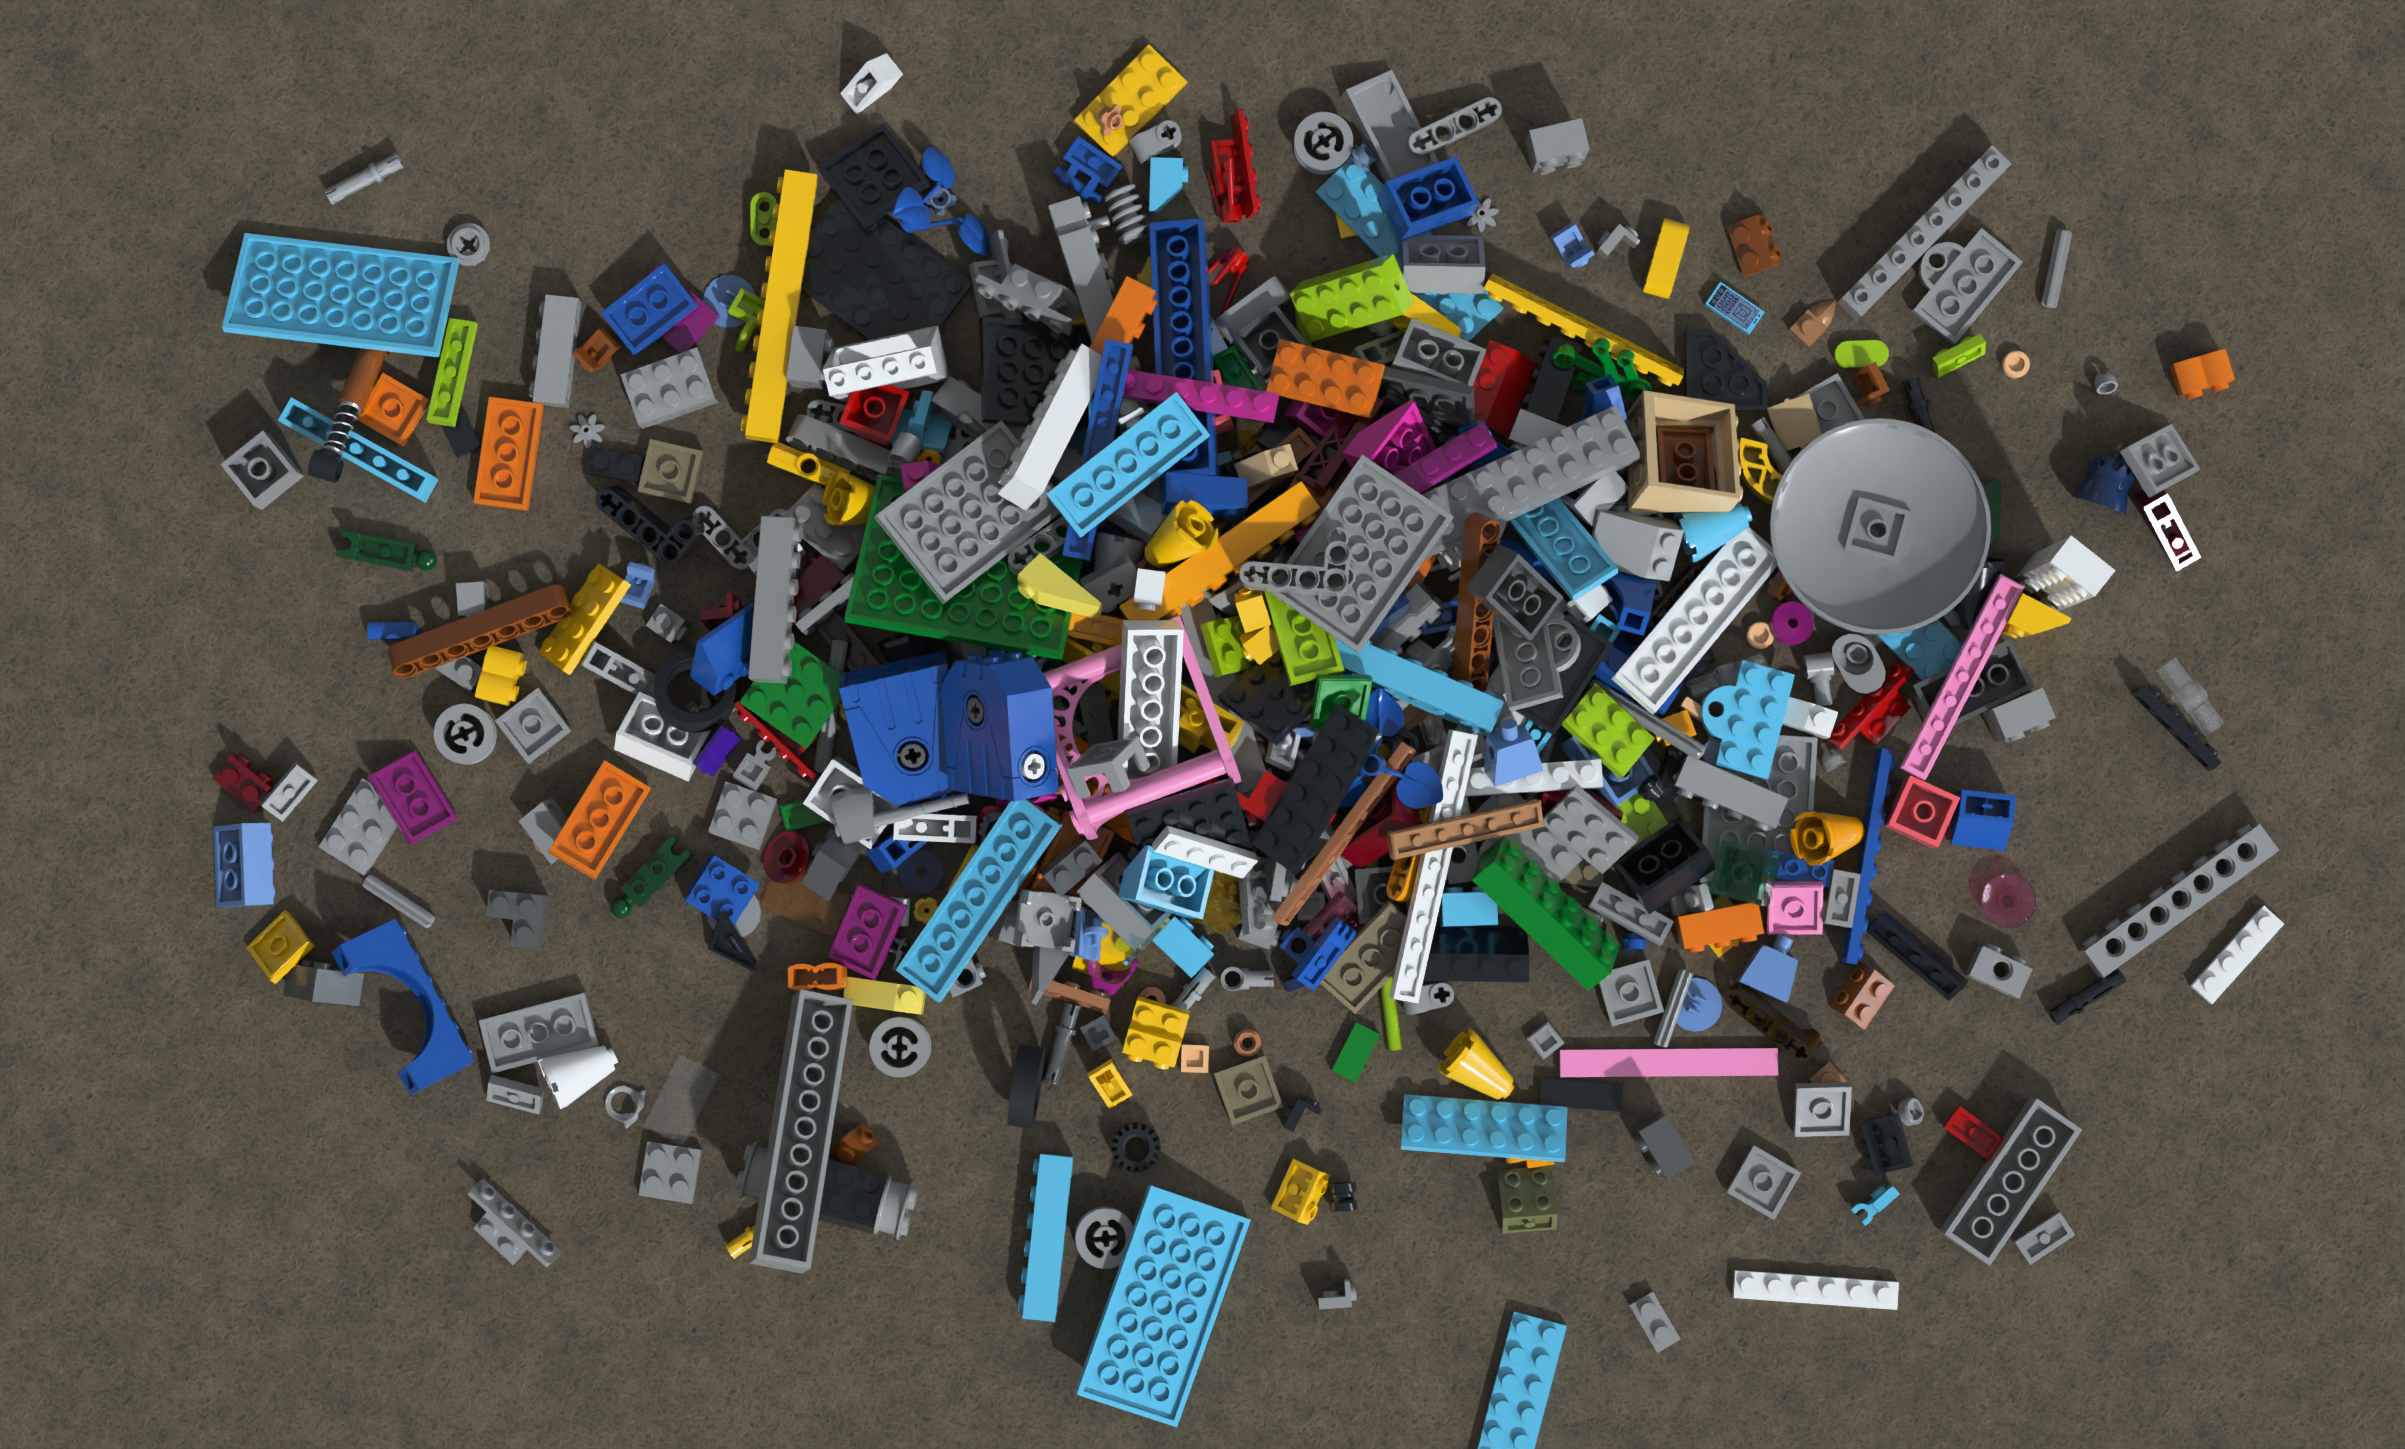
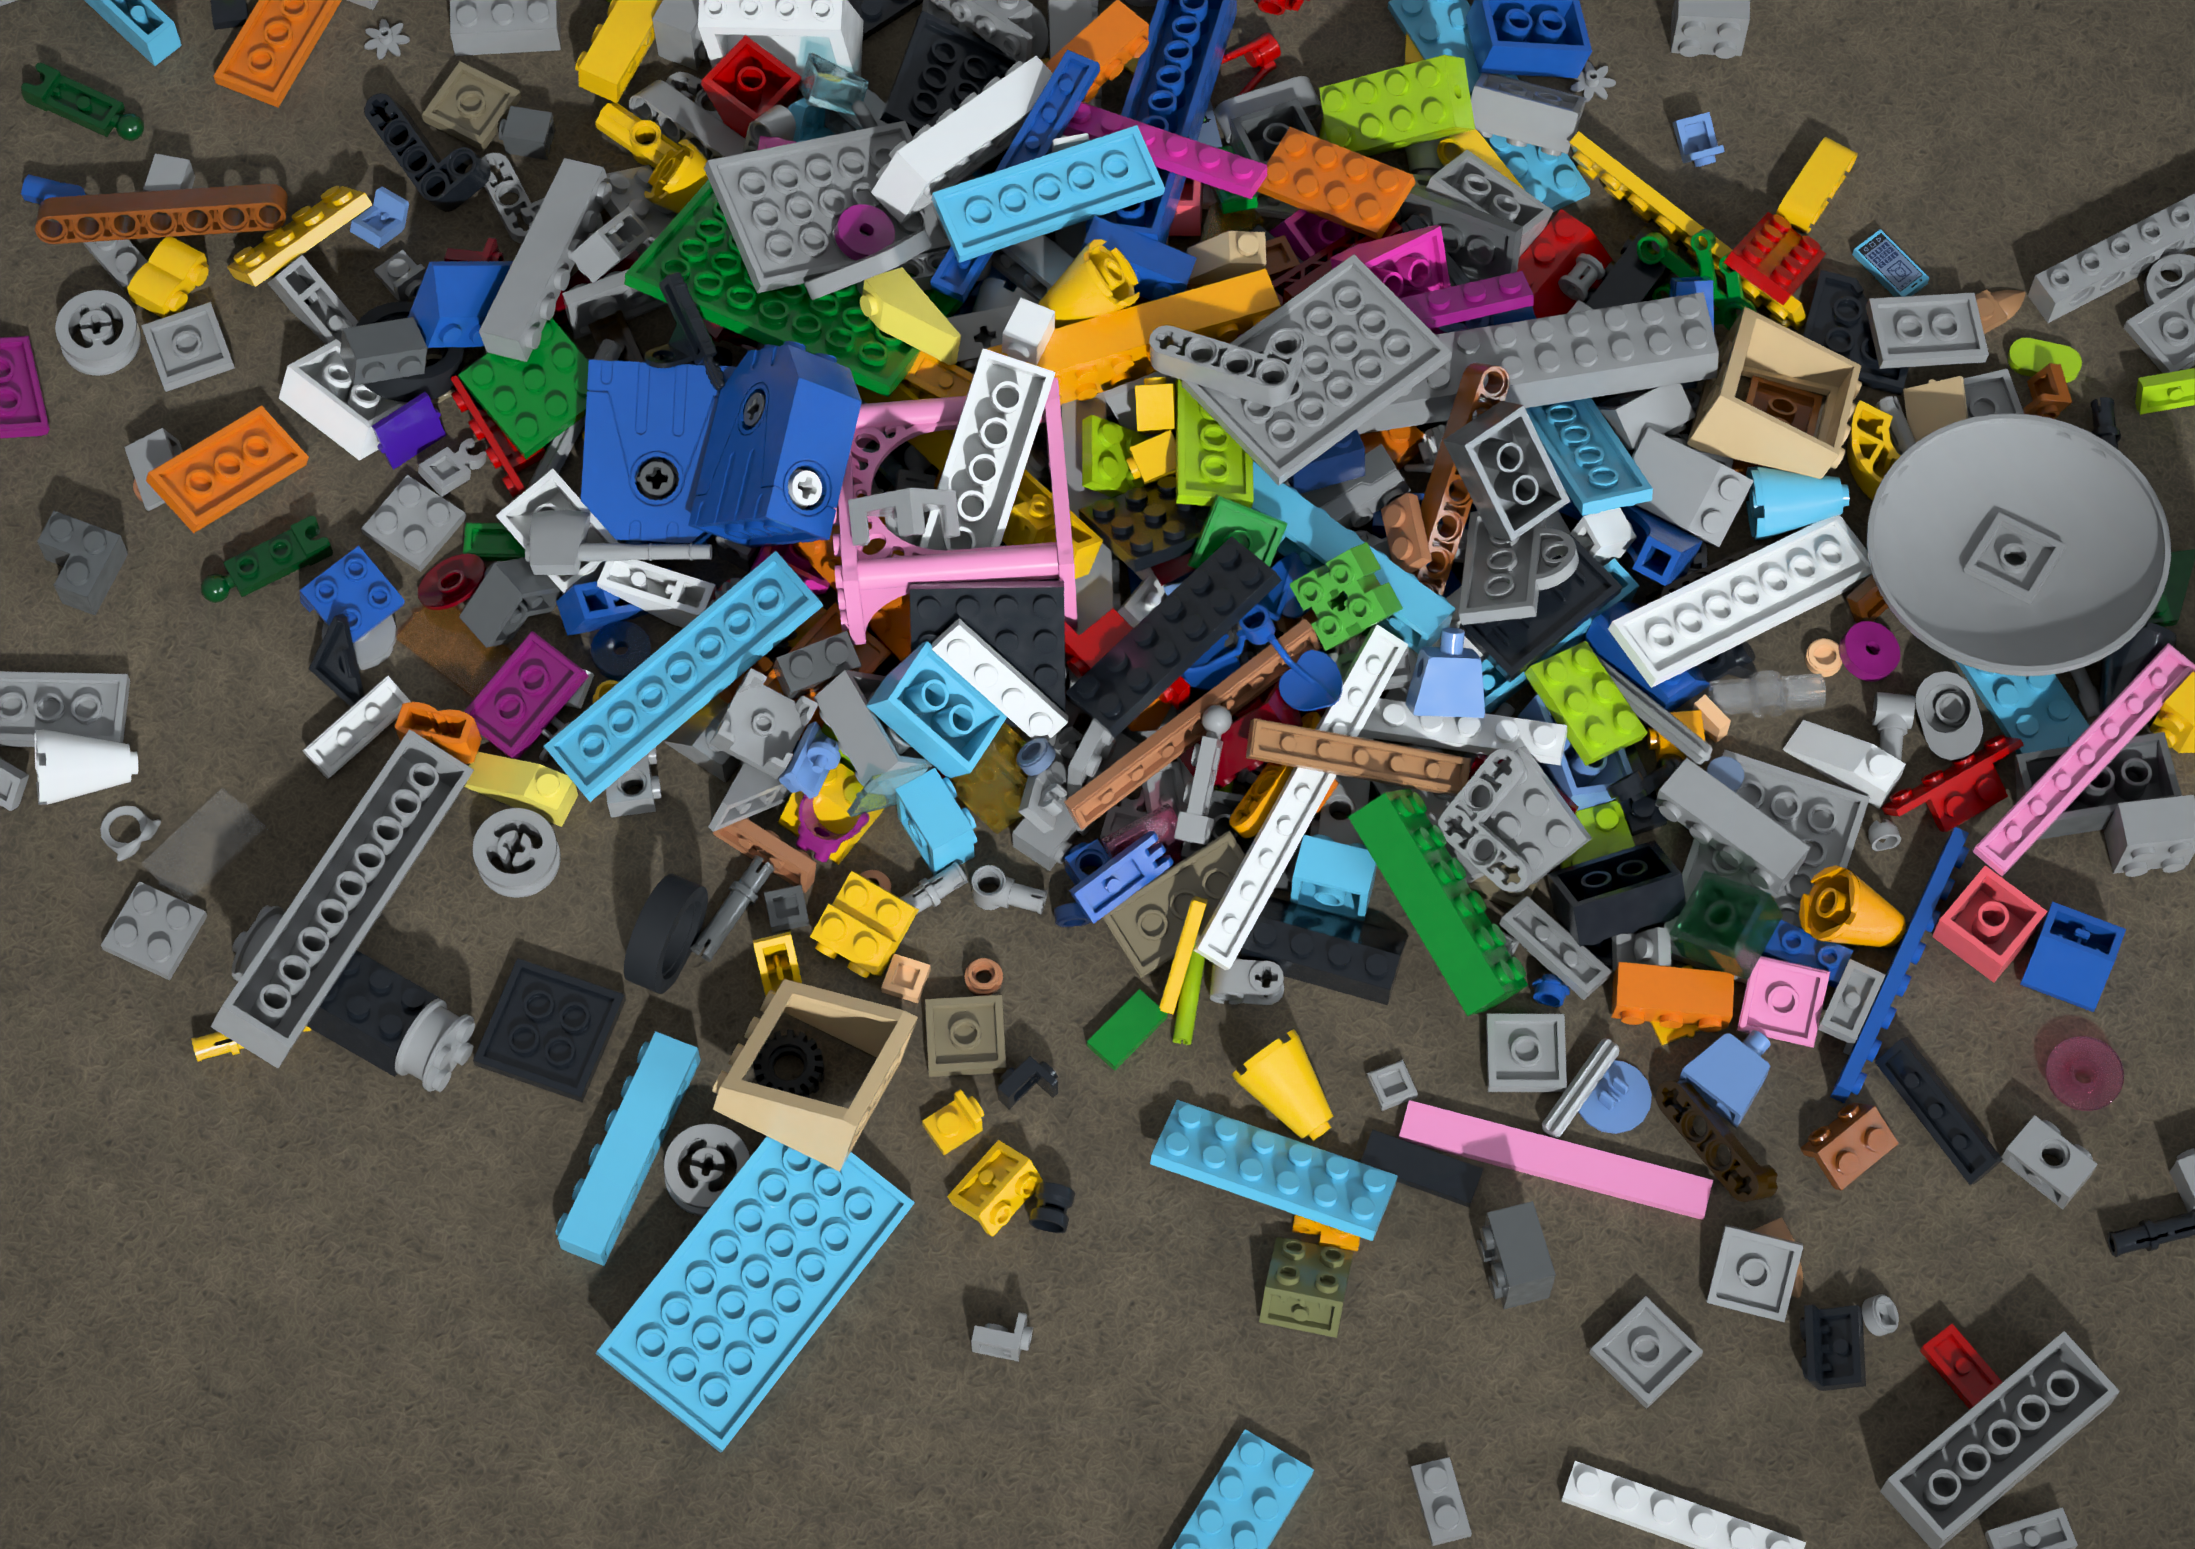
camera: 15 degrees right, 20 degrees down
(614, 465) = (403, 82): black plate -> none
(684, 710) = (383, 351): none -> dark grey brick
(719, 483) = (527, 132): none -> dark grey brick
(757, 984) = (356, 727): none -> white tile
(818, 576) = (610, 244): none -> light grey brick
(855, 1145) = (414, 958): dark orange bracket -> none
(904, 655) = (690, 338): none -> black piece
(934, 397) = (830, 85): none -> clear light blue slope
(965, 1167) = (549, 1030): none -> black plate
(995, 538) = (867, 219): none -> magenta piece
(1027, 563) = (869, 266): none -> light grey beam
(1169, 1205) = (799, 1122): none -> tan windscreen
(1242, 890) = (1036, 756): none -> sand blue tile
(1259, 1154) = (955, 1122): none -> yellow bracket
(1364, 901) = (1195, 824): none -> light grey plate
(1381, 1000) = (1183, 954): none -> yellow tile
(1427, 720) = (1366, 602): none -> bright green brick
(1452, 648) = (1406, 533): none -> nougat plate
(1518, 391) = (1568, 282): none -> light grey bush
(1554, 846) = (1475, 816): none -> light grey beam
(1610, 241) = (1753, 146): light grey bracket -> none
(1654, 341) = (1775, 257): none -> red plate
(1749, 718) = (1782, 741): medium azure plate -> none
(1754, 245) = (1936, 198): dark orange bracket -> none
(1774, 361) = (1927, 330): none -> light grey plate
(1880, 1199) = (1808, 1418): medium azure plate -> none

